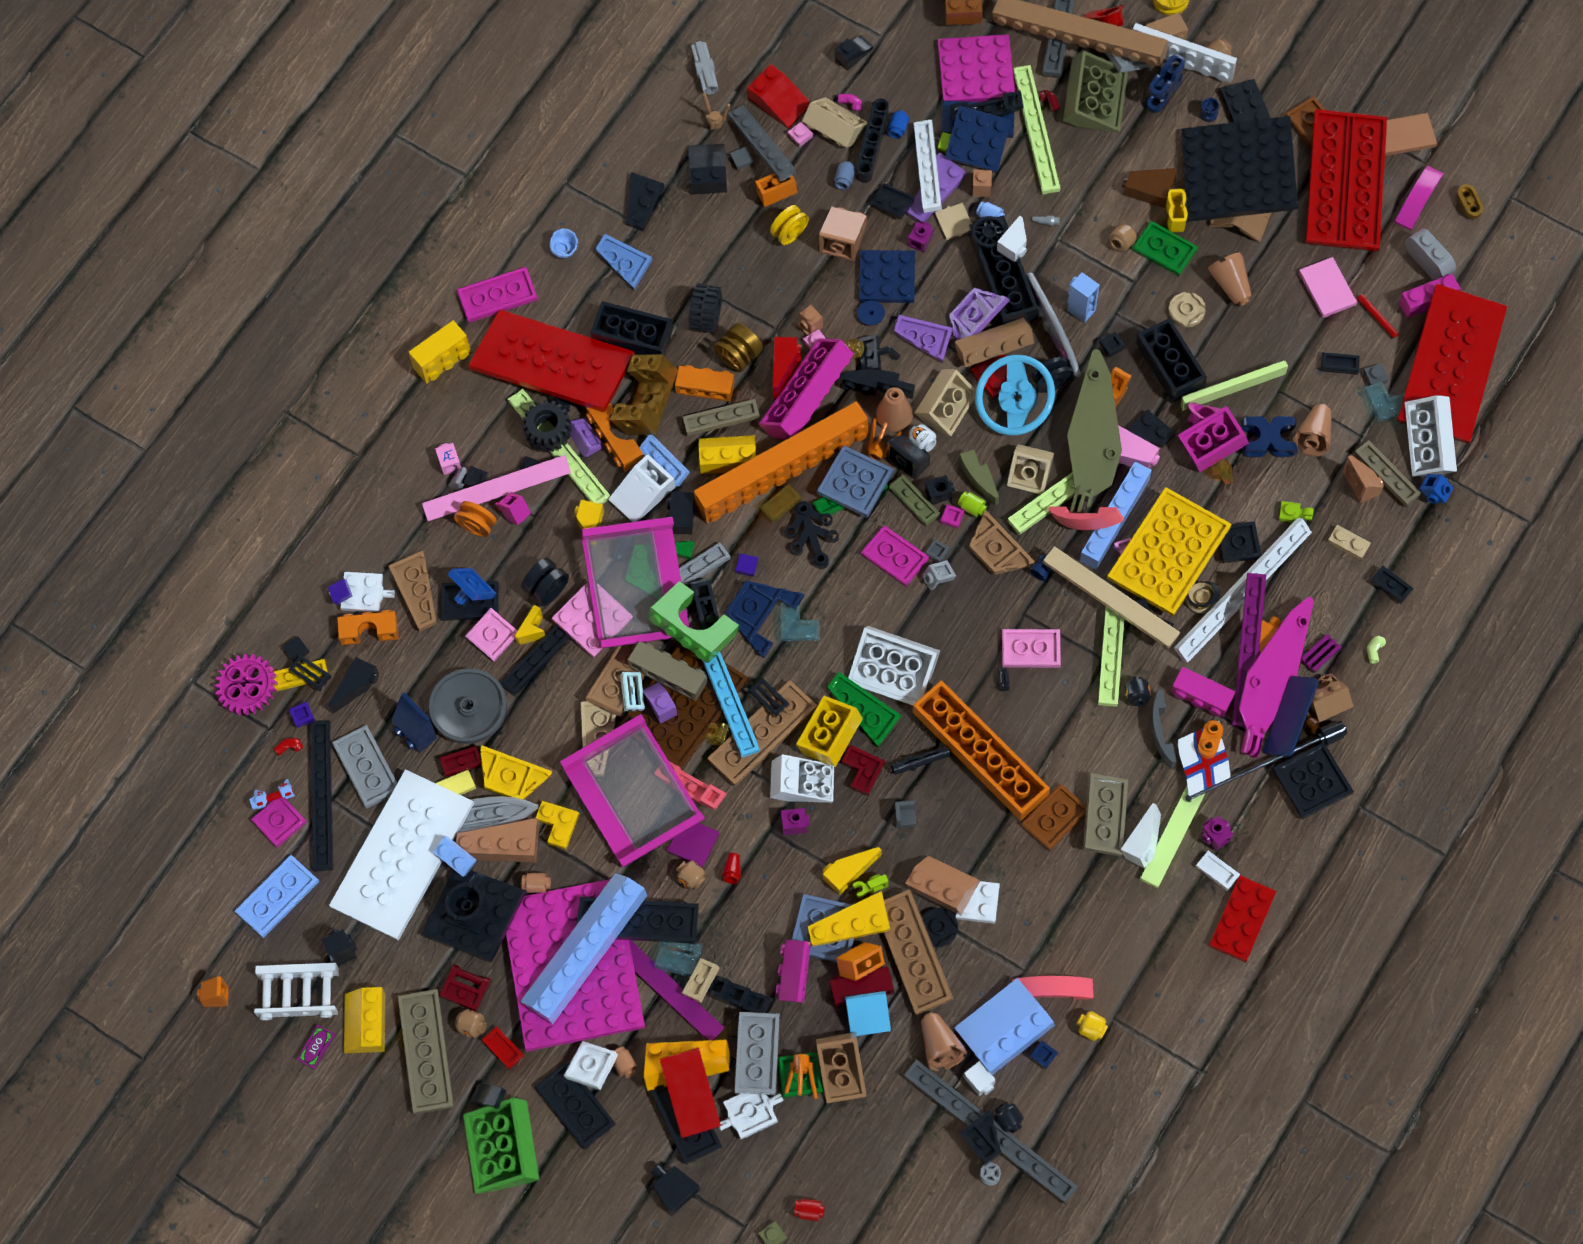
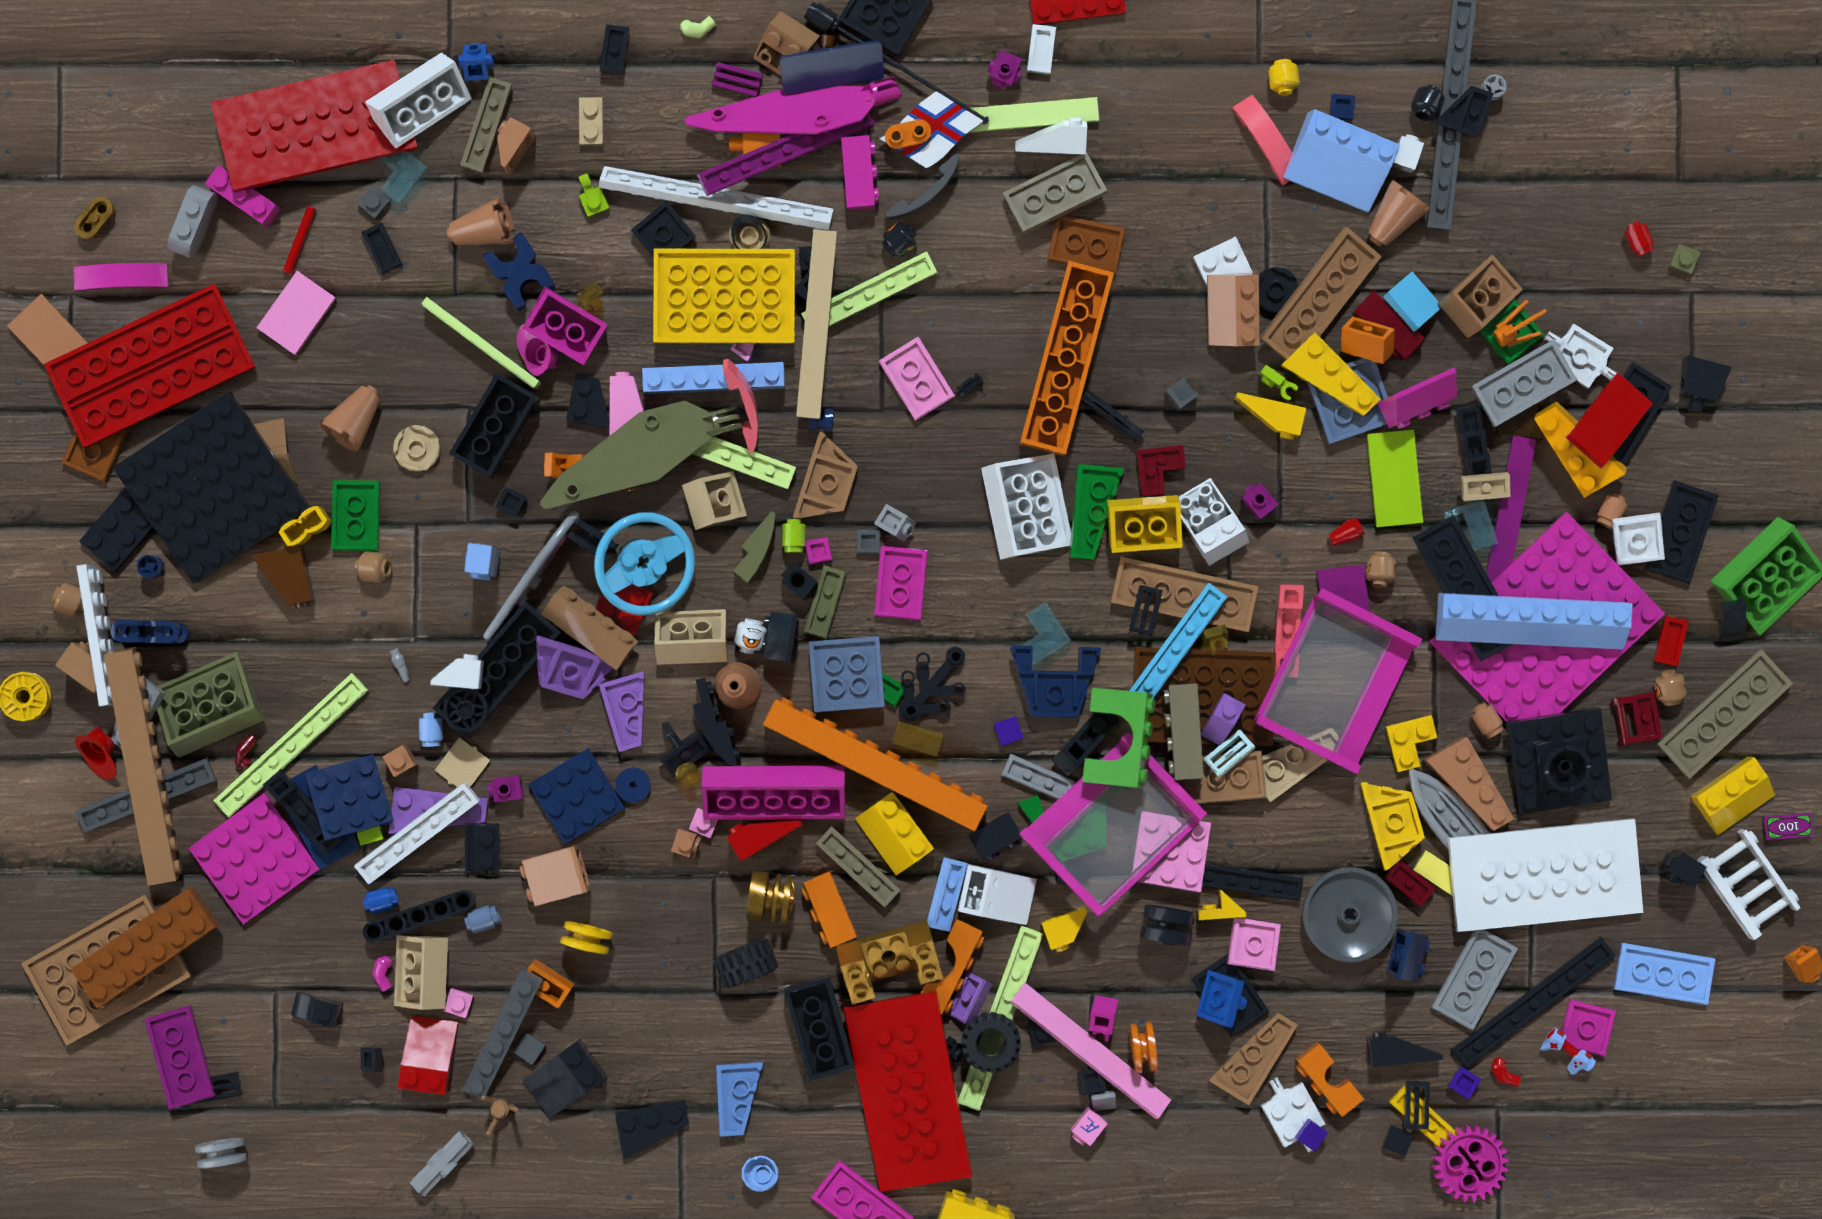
camera: 125 degrees left, 20 degrees up
(454, 856) = (1519, 815): light blue plate -> none
(748, 926) = (1394, 478): none -> lime tile
(799, 64) = (371, 1059): none -> black plate
(876, 450) = (792, 676): orange plant -> none

